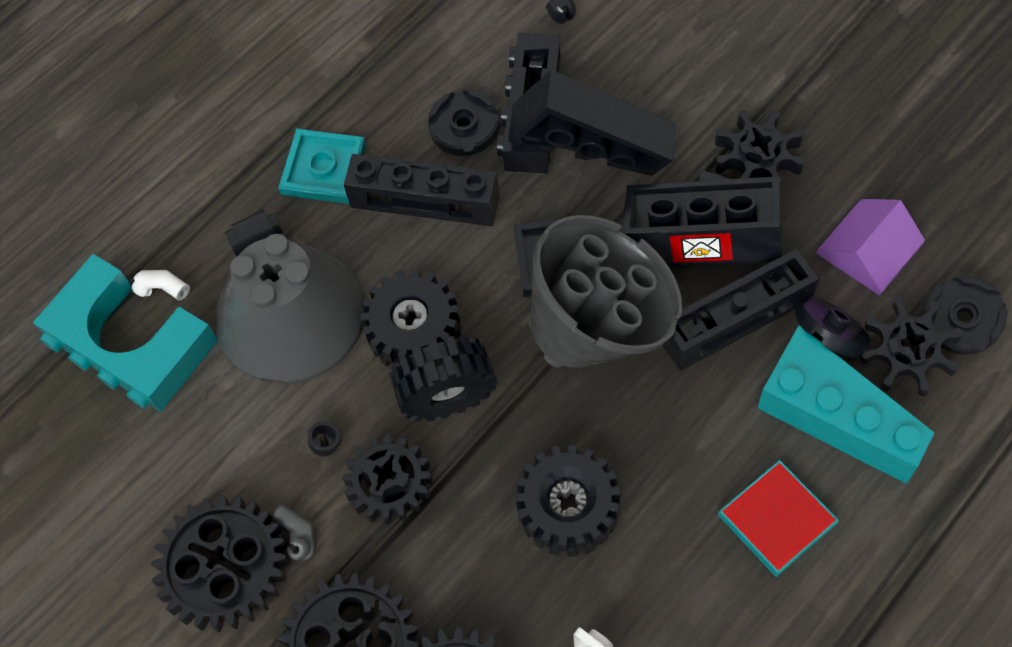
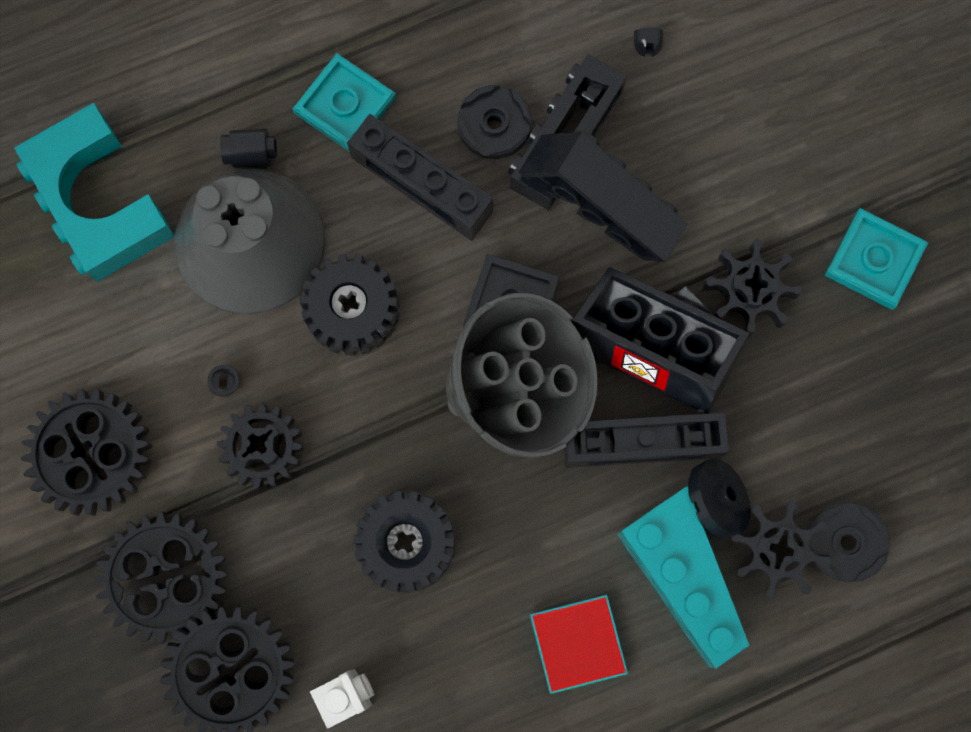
camera: 20 degrees right, 15 degrees up
(161, 279) = (137, 148): white arm -> none
(300, 532) = (167, 455): dark grey arm -> none
(442, 378) = (346, 382): black bush -> none
(847, 88) = (876, 259): none -> teal tile
(873, 242) = (807, 429): medium lavender slope -> none

